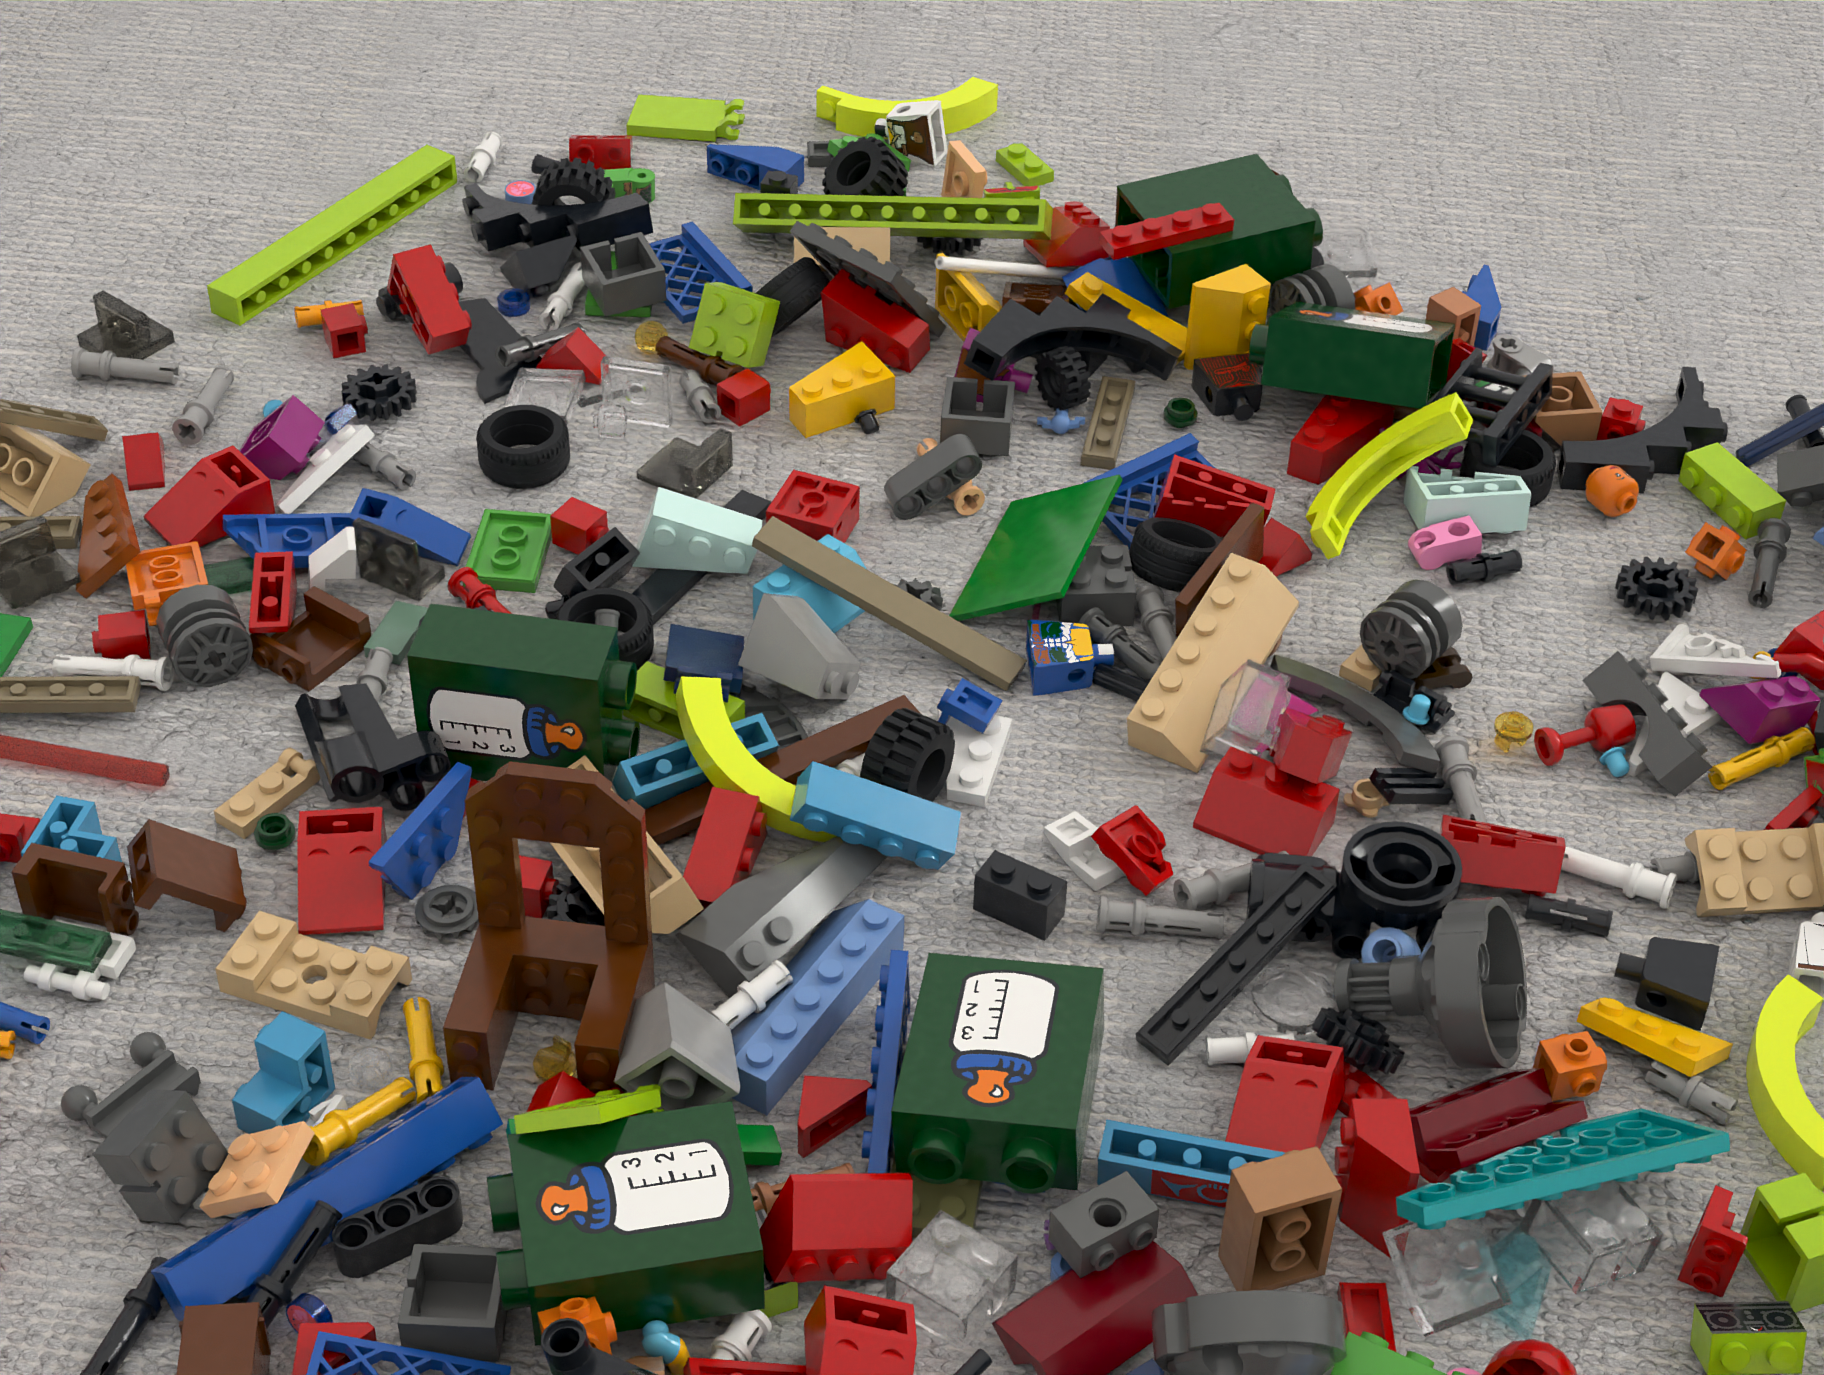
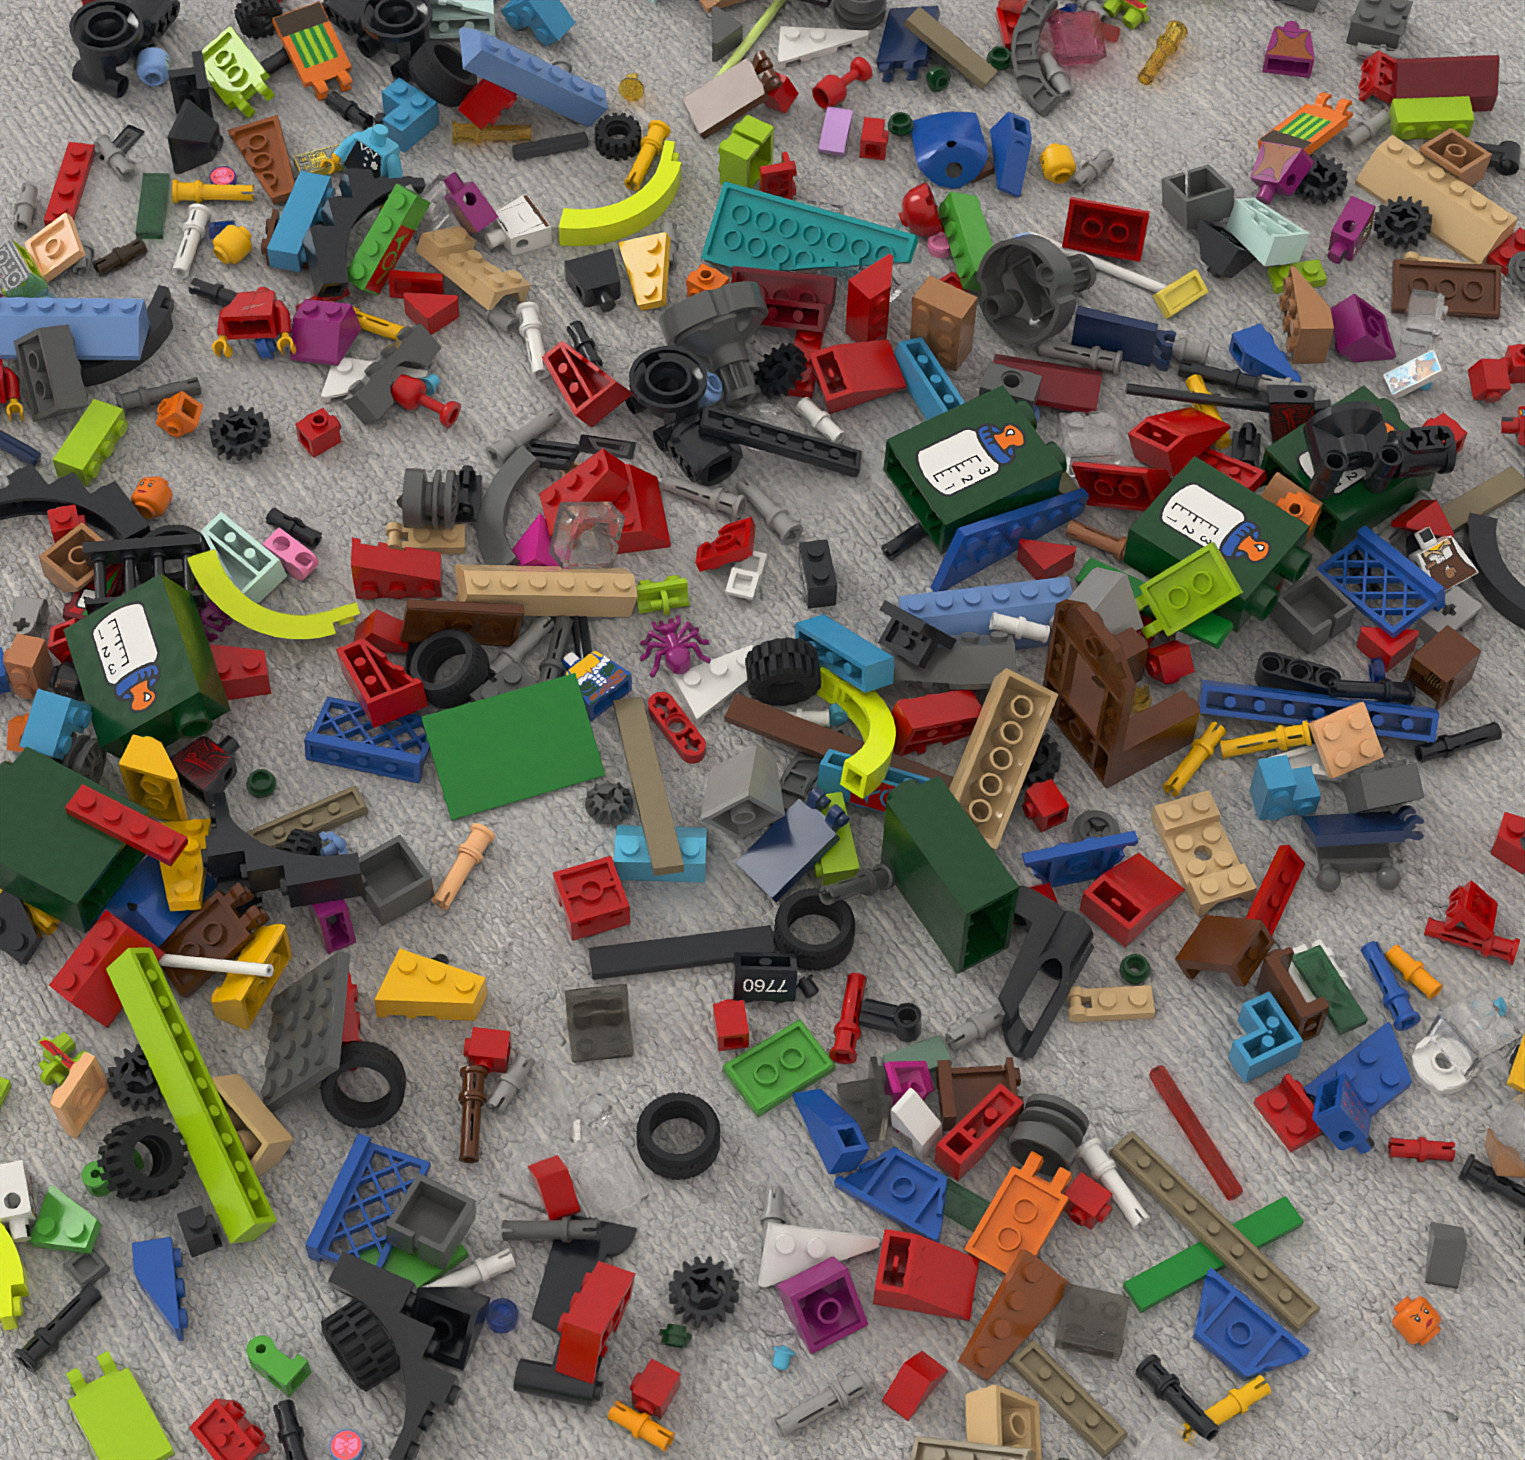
camera: 130 degrees left, 15 degrees up
(177, 1066) = (1362, 827): none -> dark blue tile
(192, 983) = (1276, 887): none -> red plate
(339, 418) = (759, 1289): clear blue tile -> none
(364, 354) = (675, 1336): none -> dark green plate
(383, 584) = (906, 1075): none -> dark pink slope
(648, 335) = (470, 1169): clear yellow plate -> none
(696, 536) = (689, 934): light aqua wedge -> none
(734, 324) = (435, 1087): lime piece -> none
(786, 113) = (48, 1337): none -> black pin
(826, 859) = (912, 636): none -> black bracket
(922, 679) = (676, 715): none -> red beam
(933, 476) = (490, 853): dark grey beam -> none
(969, 705) = (700, 685): blue bracket -> none
(1036, 728) = (673, 647): none -> magenta animal
(1109, 754) = (662, 595): none -> lime hips
(1345, 266) = (52, 723): none -> dark azure brick
(1349, 587) = (395, 573): none -> red wedge
(1418, 710) = (478, 485): medium azure piece -> none
(1512, 728) = (451, 434): clear yellow plate -> none
(1605, 635) = (318, 432): none -> red brick
(1709, 657) = (298, 383): white wing -> none
(1736, 804) = (431, 310): none -> red slope
(1748, 1338) = (816, 155): lime brick -> none

